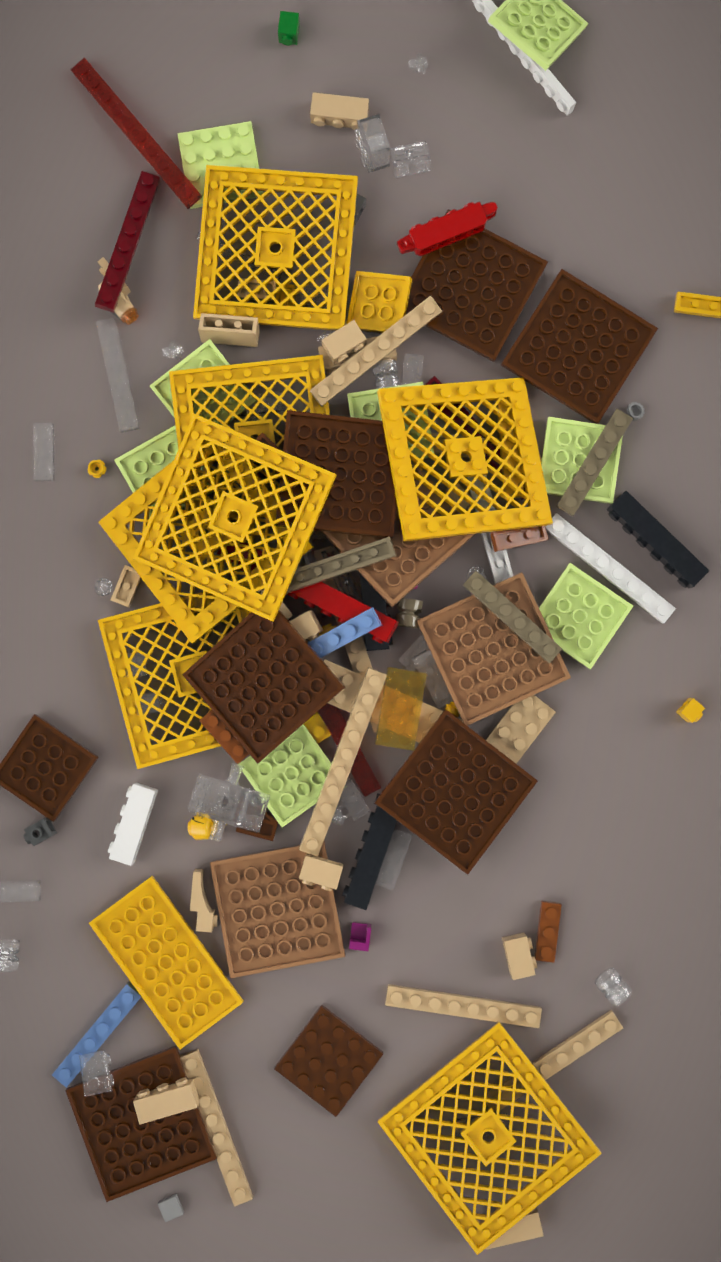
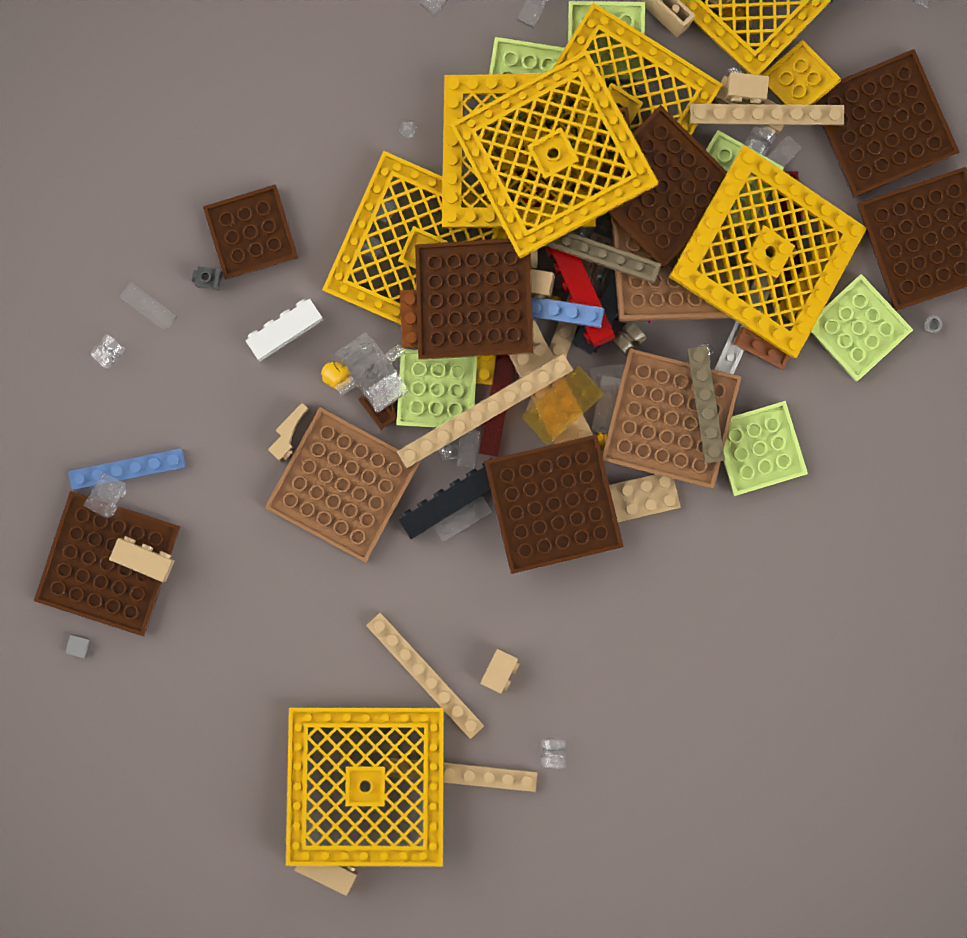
camera: 35 degrees right, 0 degrees up
(96, 473) = (475, 28): yellow plate -> none
(126, 586) = (425, 143): tan plate -> none
(166, 962) = (224, 456): yellow plate -> none
(217, 1129) = (160, 616): tan plate -> none
(321, 872) = (400, 482): tan brick -> none
(328, 1060) = (288, 633): reddish brown plate -> none
(360, 936) = (389, 557): magenta panel -> none
(447, 229) = (900, 64): red hinge -> none
(548, 931) = (536, 671): dark orange plate -> none
(594, 462) = (868, 338): dark tan plate -> none
(610, 568) = (813, 431): white plate -> none
(657, 540) = (868, 438): black brick -> none
(691, 710) = (786, 591): yellow plate -> none

